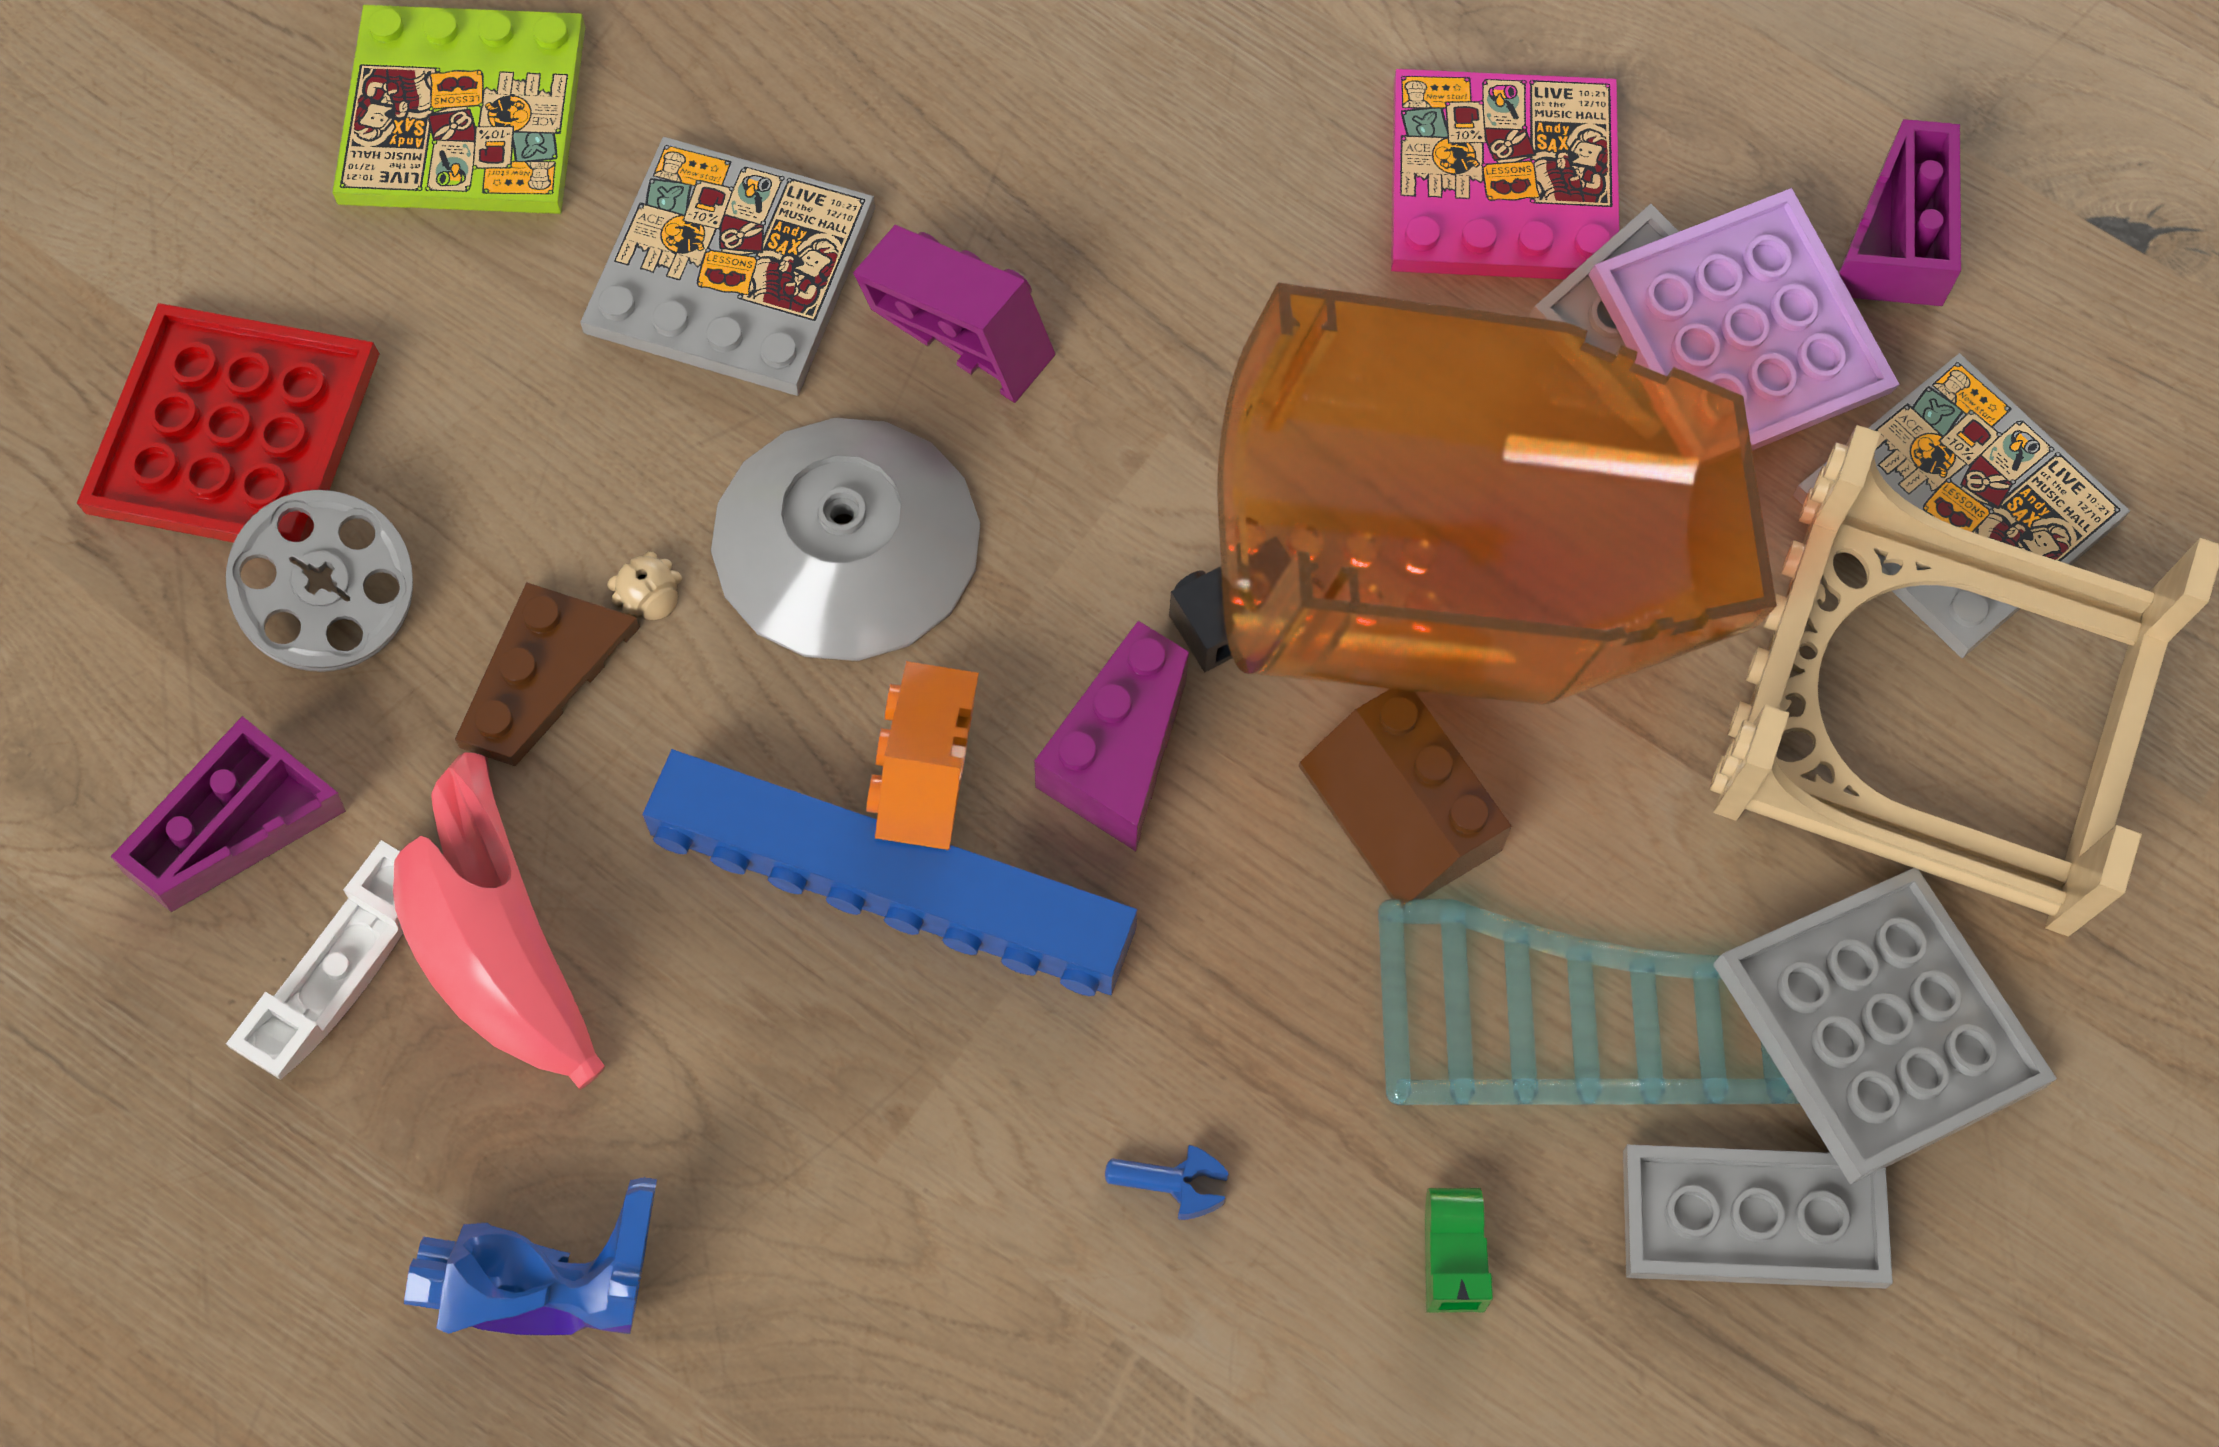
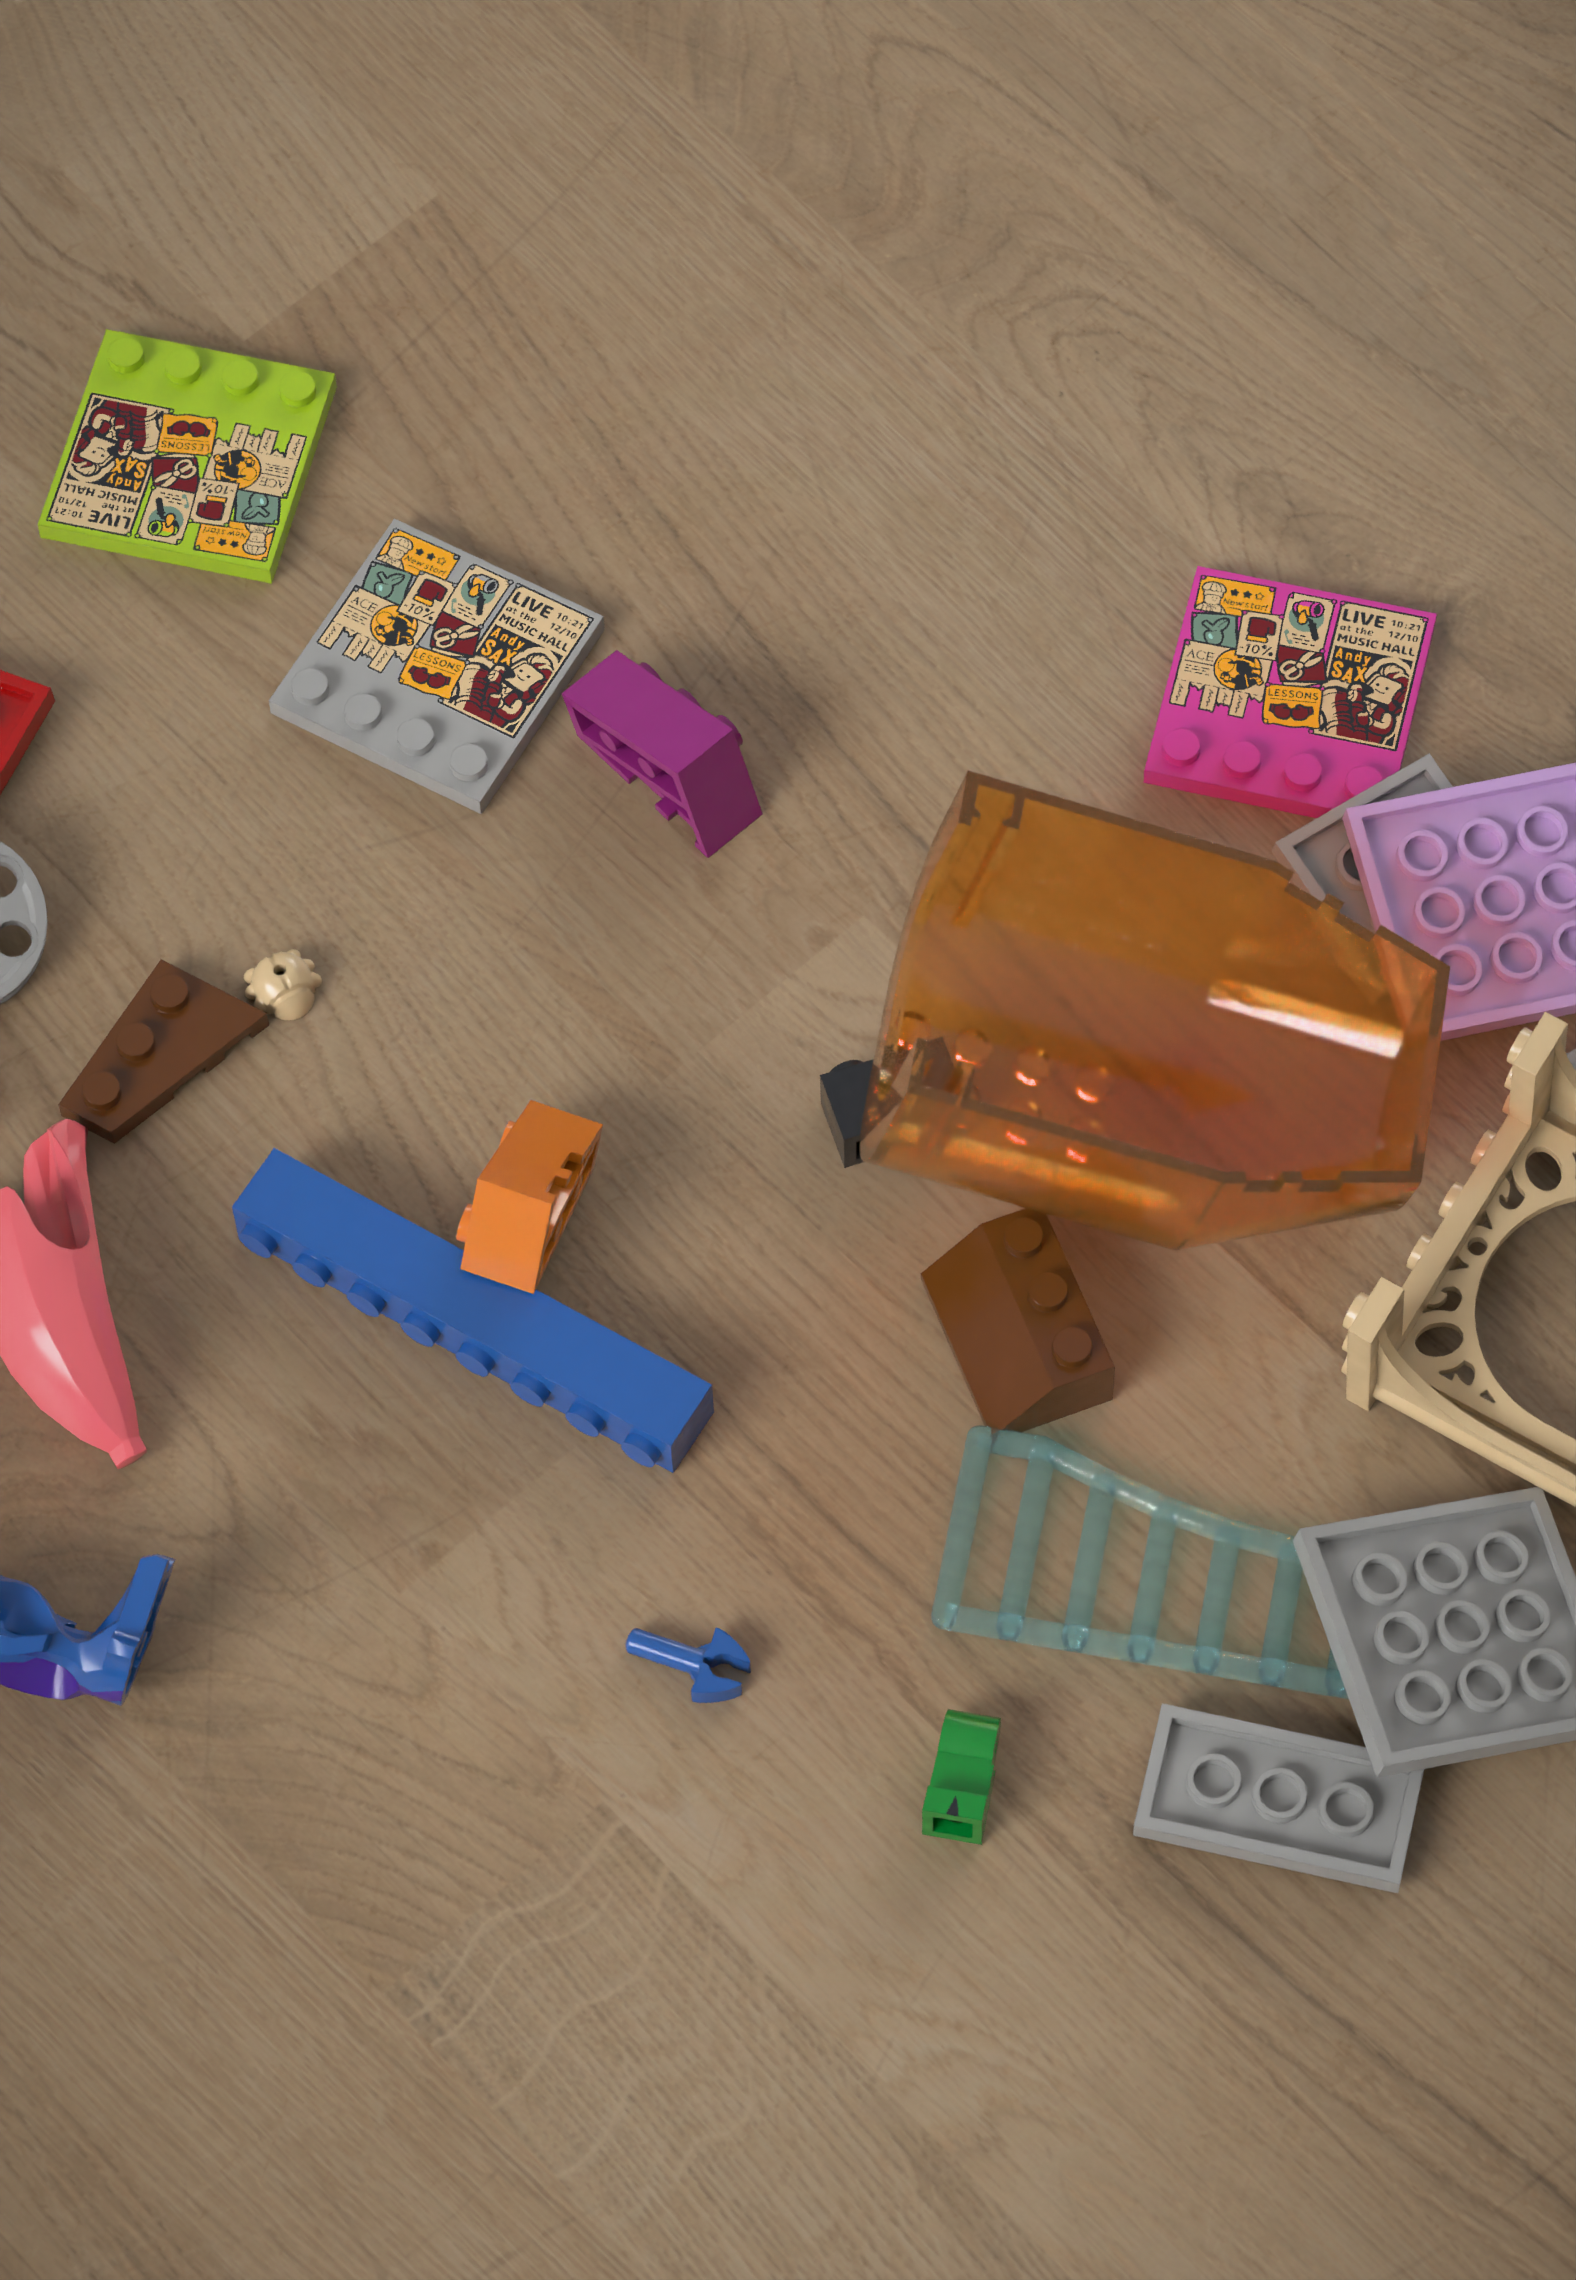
camera: 15 degrees right, 5 degrees down
(853, 584) = (509, 1014): light grey dish -> none
(1115, 736) = (733, 1212): magenta wedge -> none

